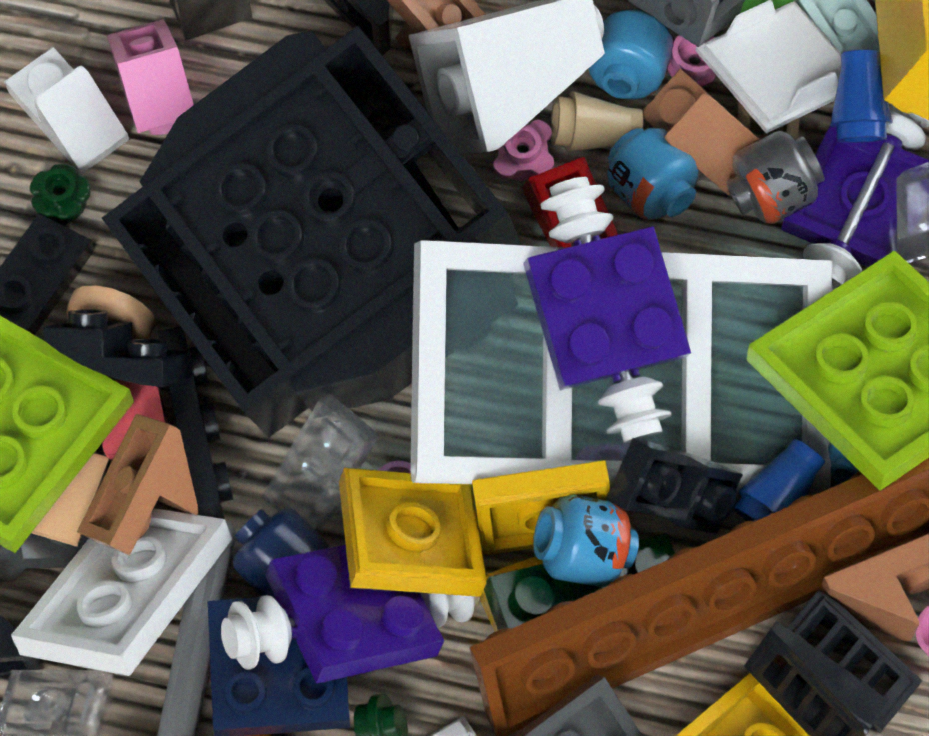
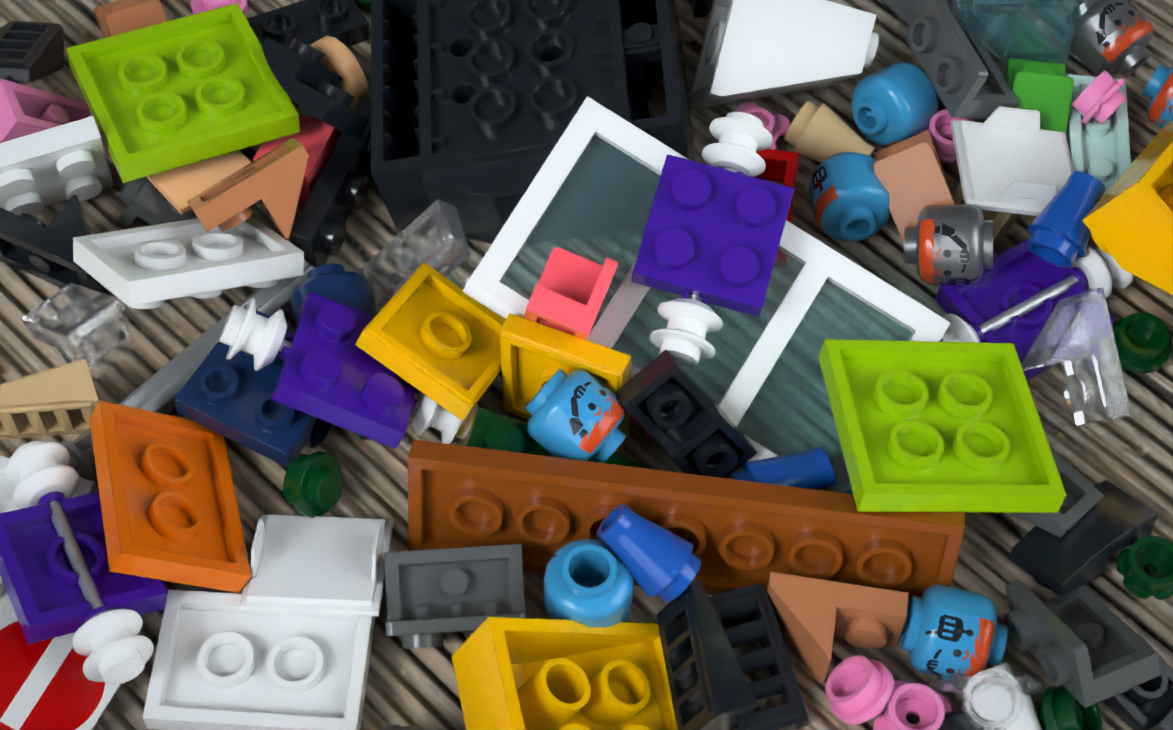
camera: 30 degrees right, 10 degrees down
(519, 432) = (570, 292): none -> coral panel
(683, 661) = (588, 585): none -> dark azure head
(726, 622) = (654, 556): none -> blue cone

